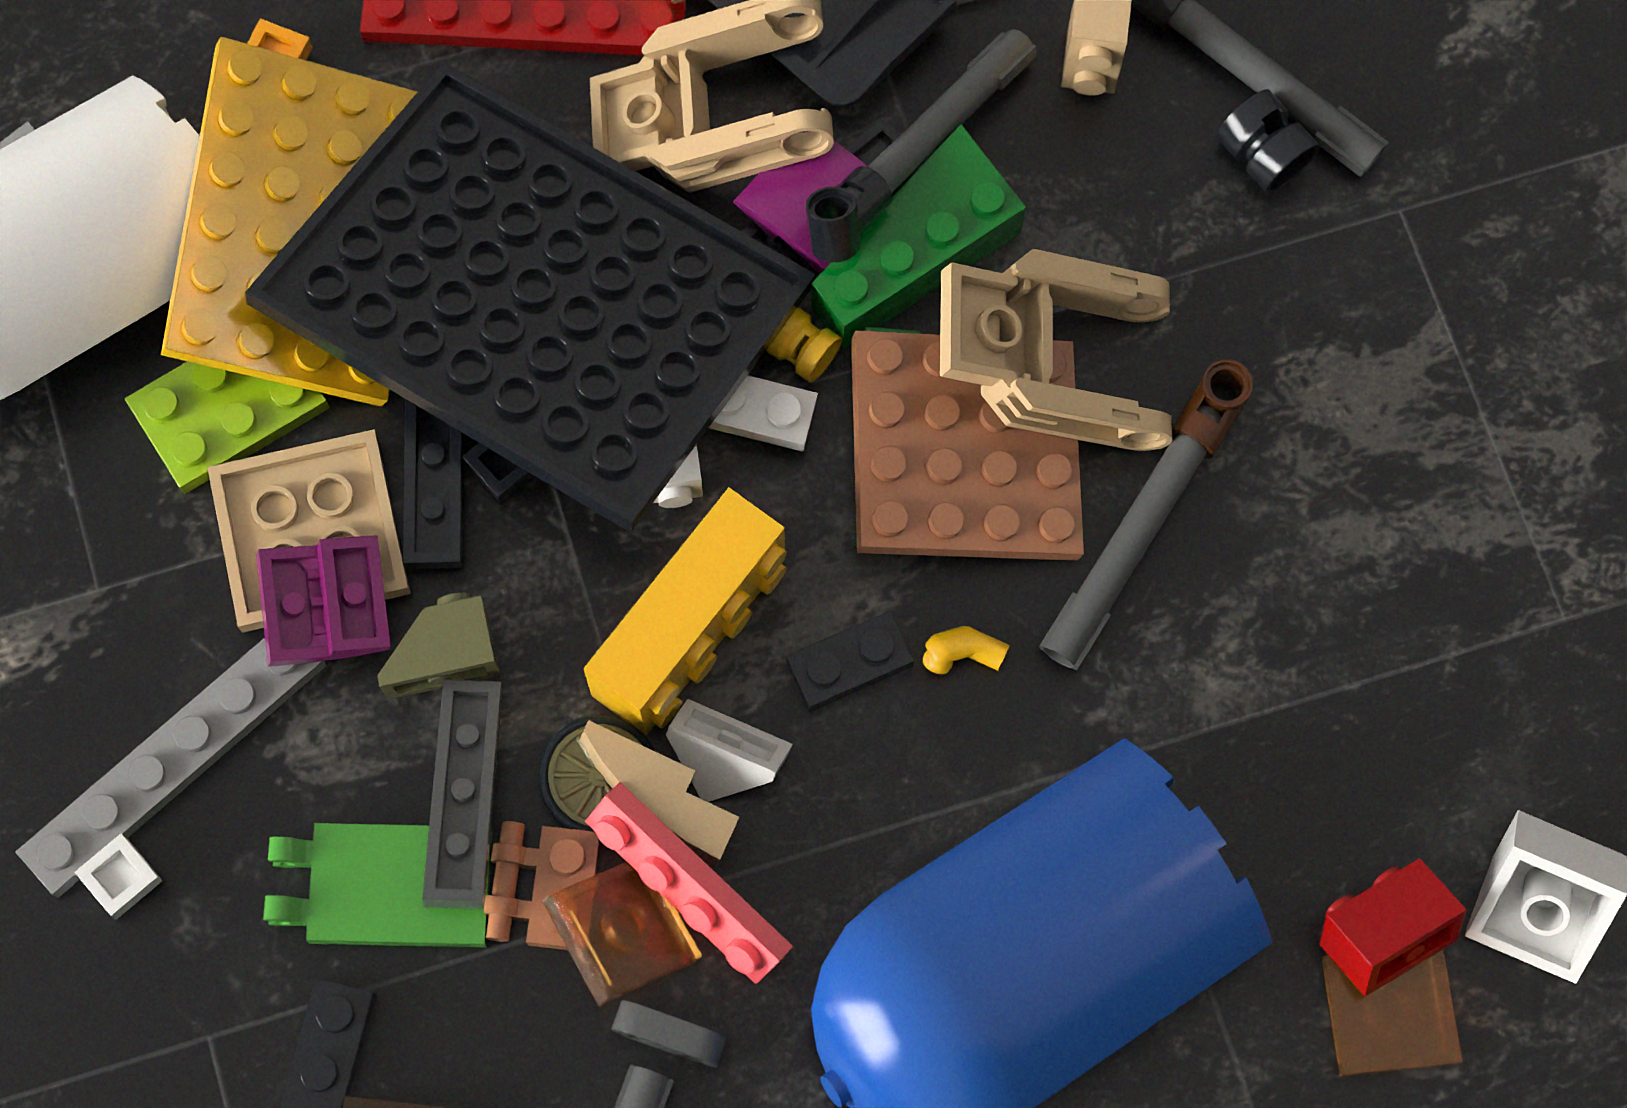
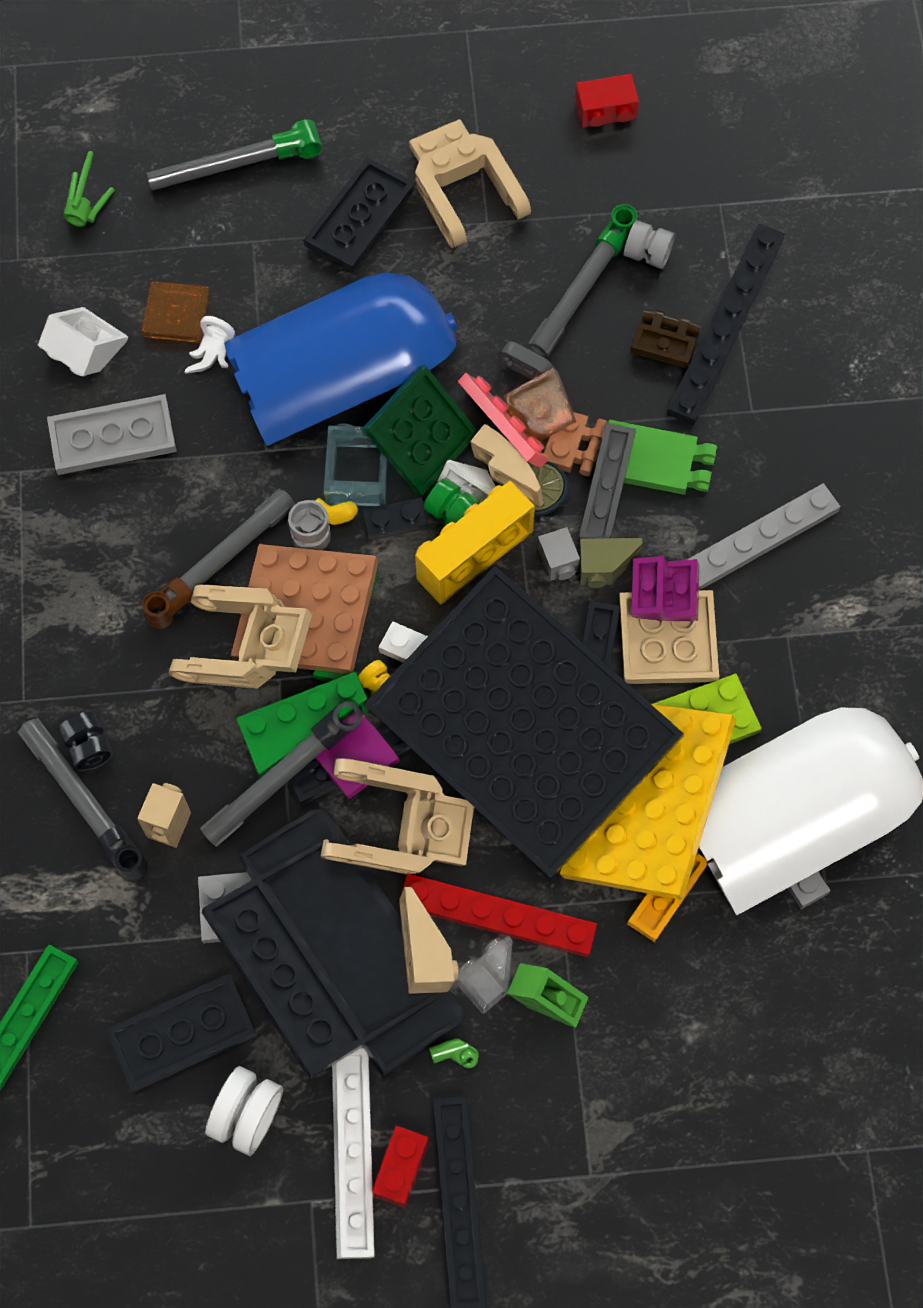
camera: 165 degrees left, 5 degrees down
(118, 876) = (788, 484): white plate -> none
(532, 640) = (558, 554): none -> light grey brick
(742, 689) = (448, 502): none -> green wheel
(838, 812) = (420, 430): none -> dark green plate
(938, 684) = (359, 492): none -> clear light blue window
(999, 592) = (309, 525): none -> light grey wheel
(1292, 960) = (212, 344): none -> white piece
(1391, 926) = (164, 336): red brick -> none
(1422, 713) = (111, 434): none -> light grey plate

